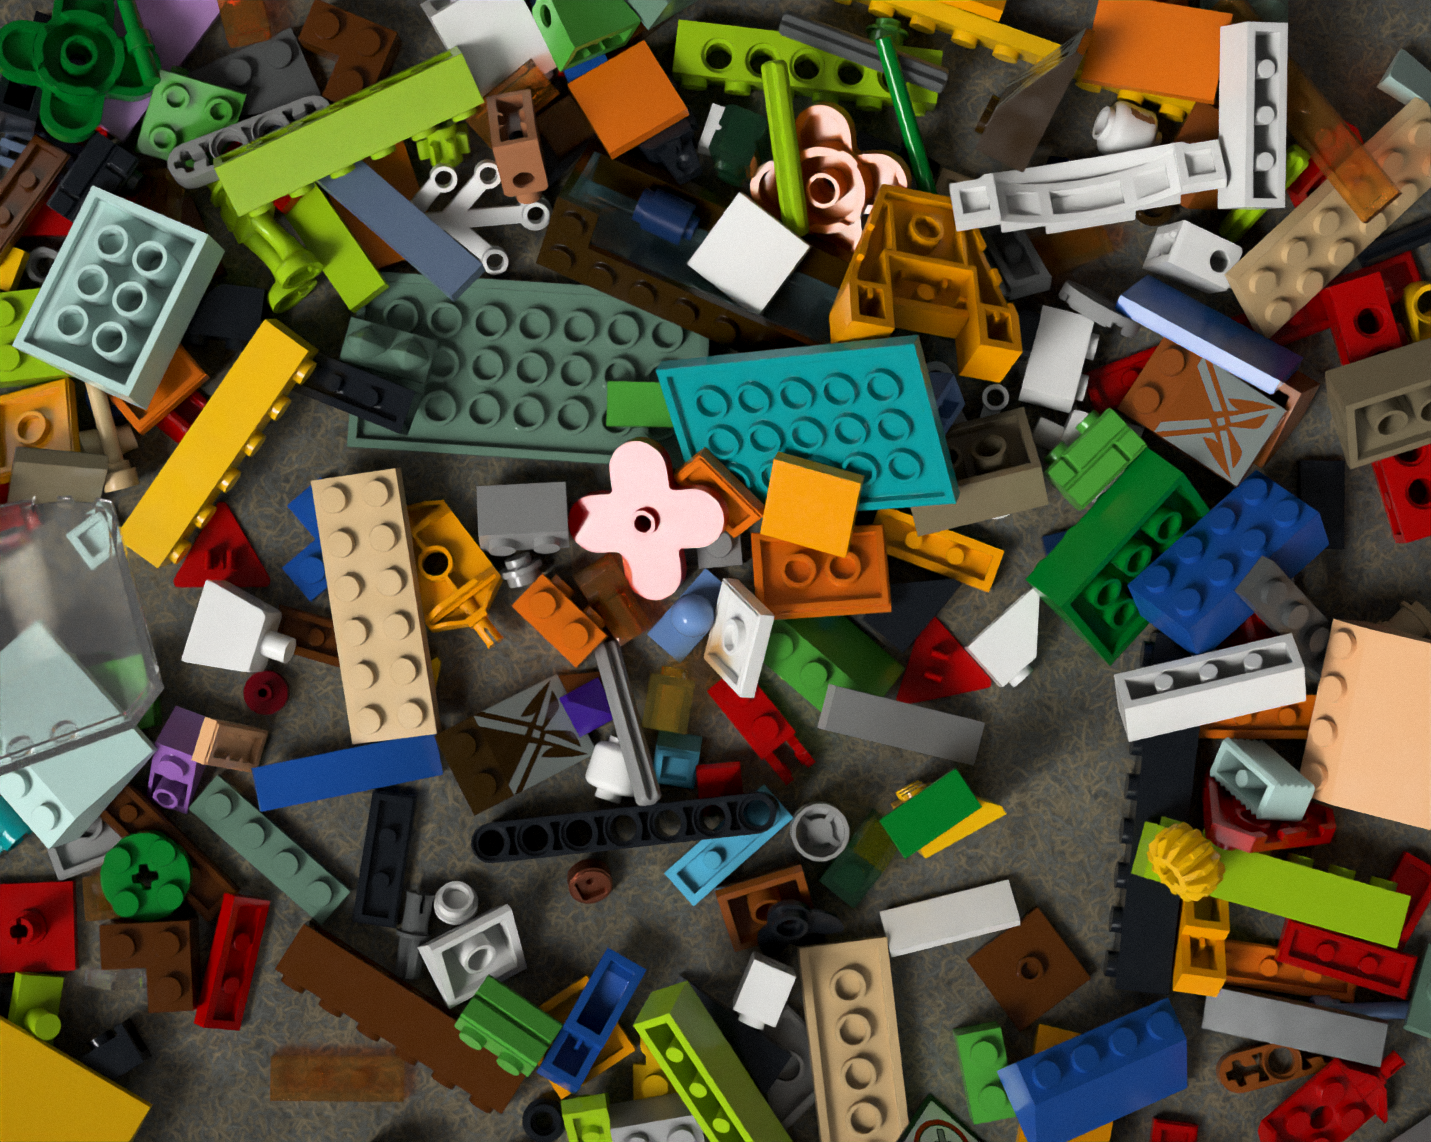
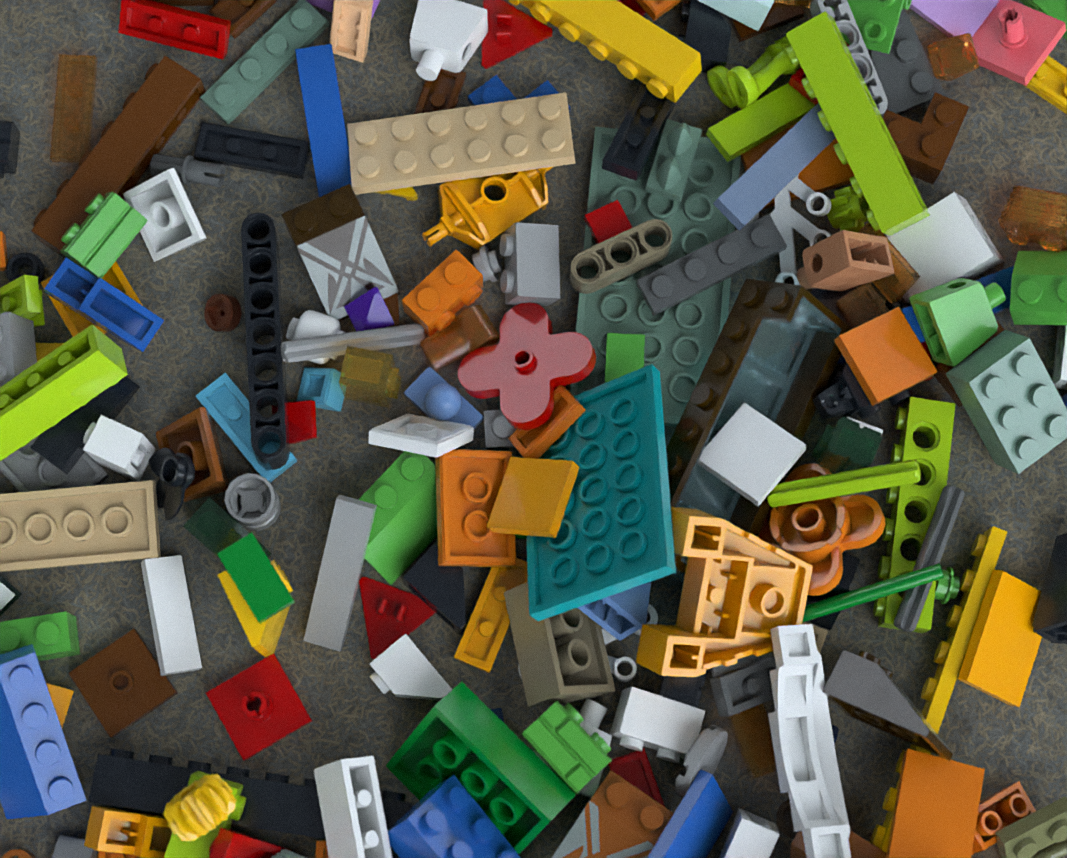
camera: 90 degrees right, 10 degrees down
(277, 692) = (394, 61): dark red tile -> none
(456, 903) = (211, 204): white plate -> none
(472, 426) = (607, 221): none -> red tile
(500, 393) = (631, 242): none -> dark tan beam
(519, 305) = (711, 264): none -> dark grey plate
(666, 216) = (785, 387): dark blue brick -> none
(760, 726) = (345, 461): red hinge -> none
(1050, 811) = (259, 707): none -> red tile
(1125, 128) = (863, 793): white head -> none

